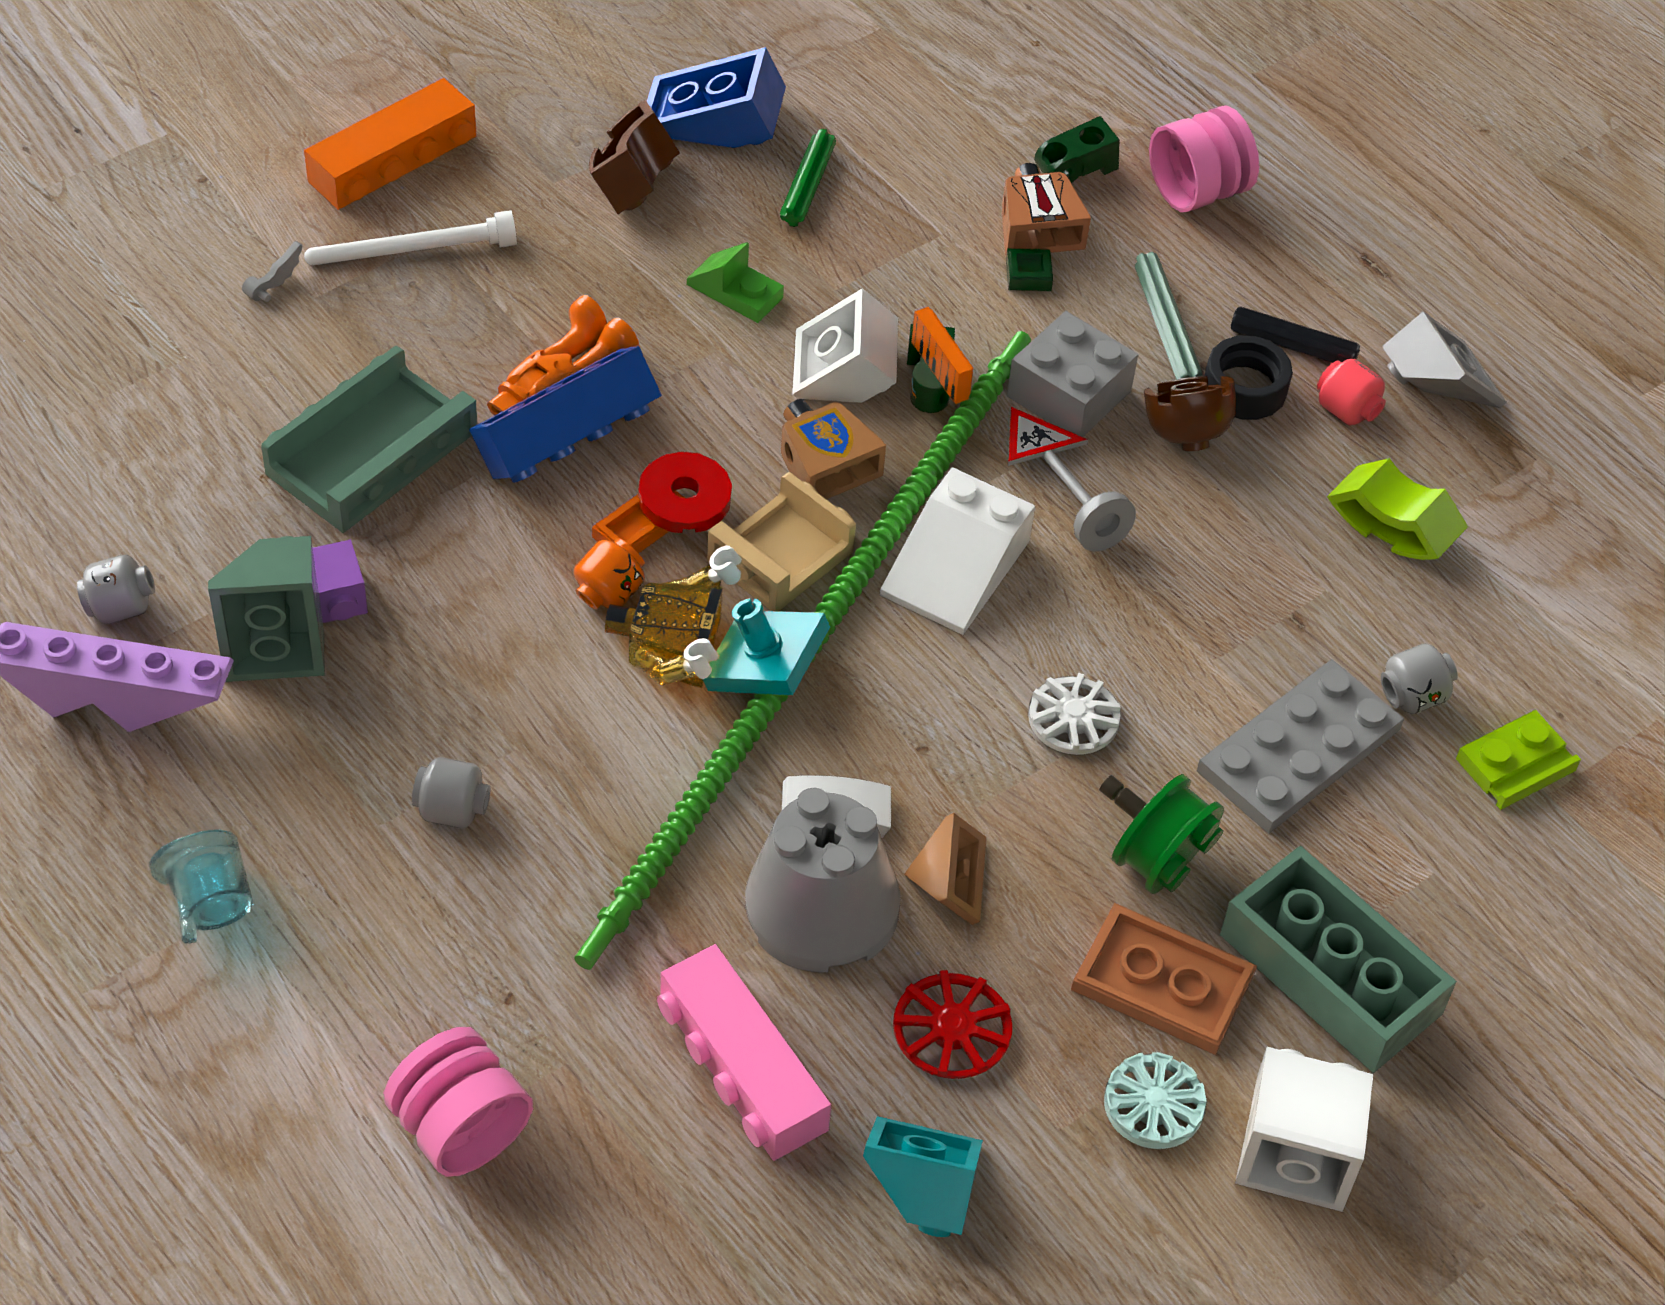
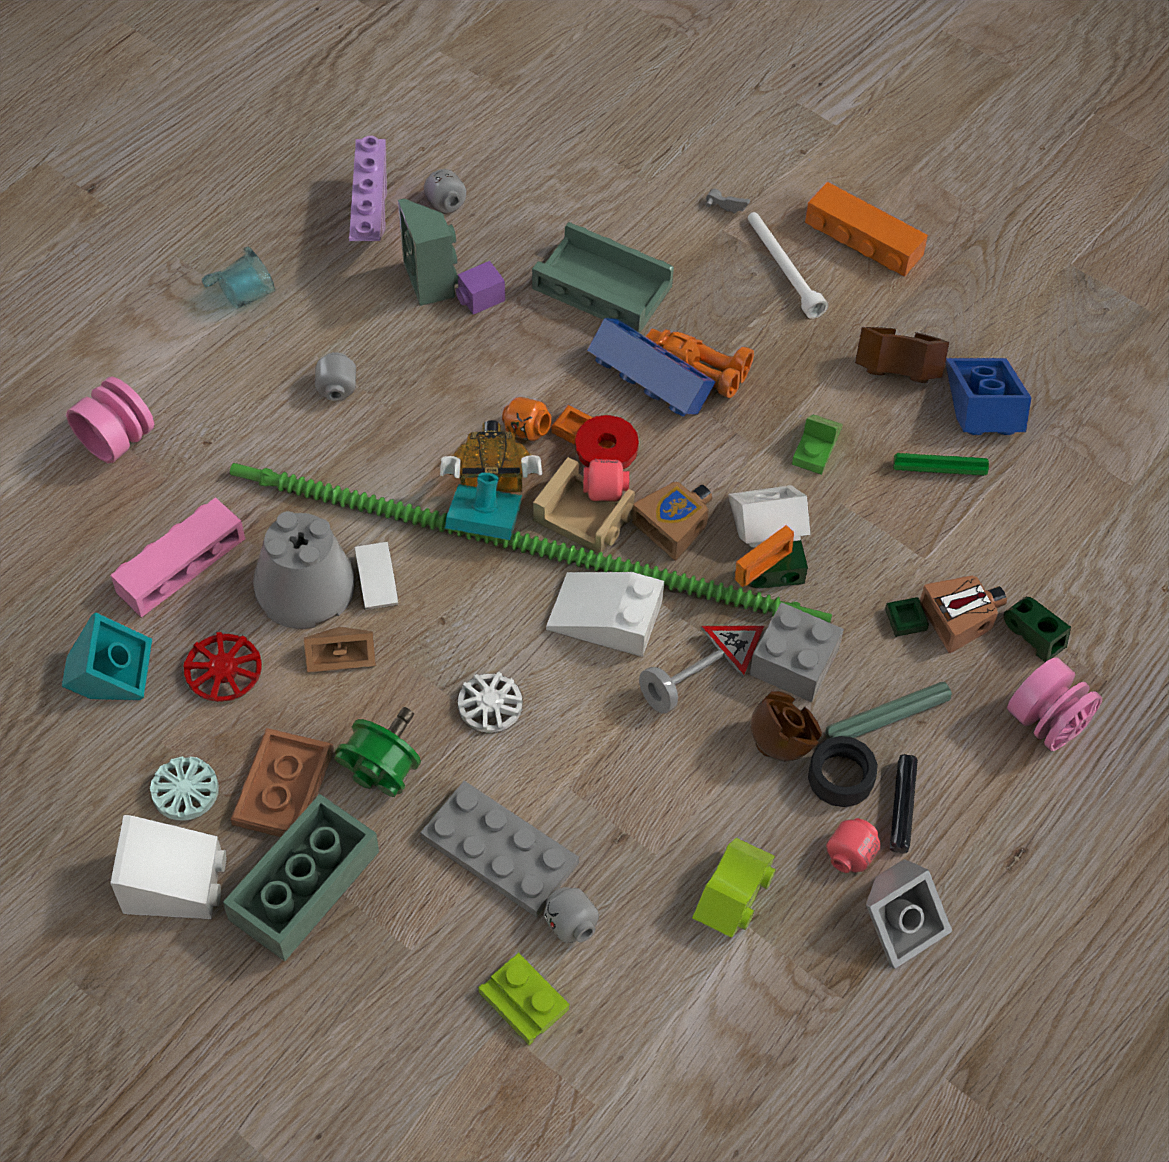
camera: 80 degrees right, 5 degrees up
(756, 501) = (605, 480): none -> coral head

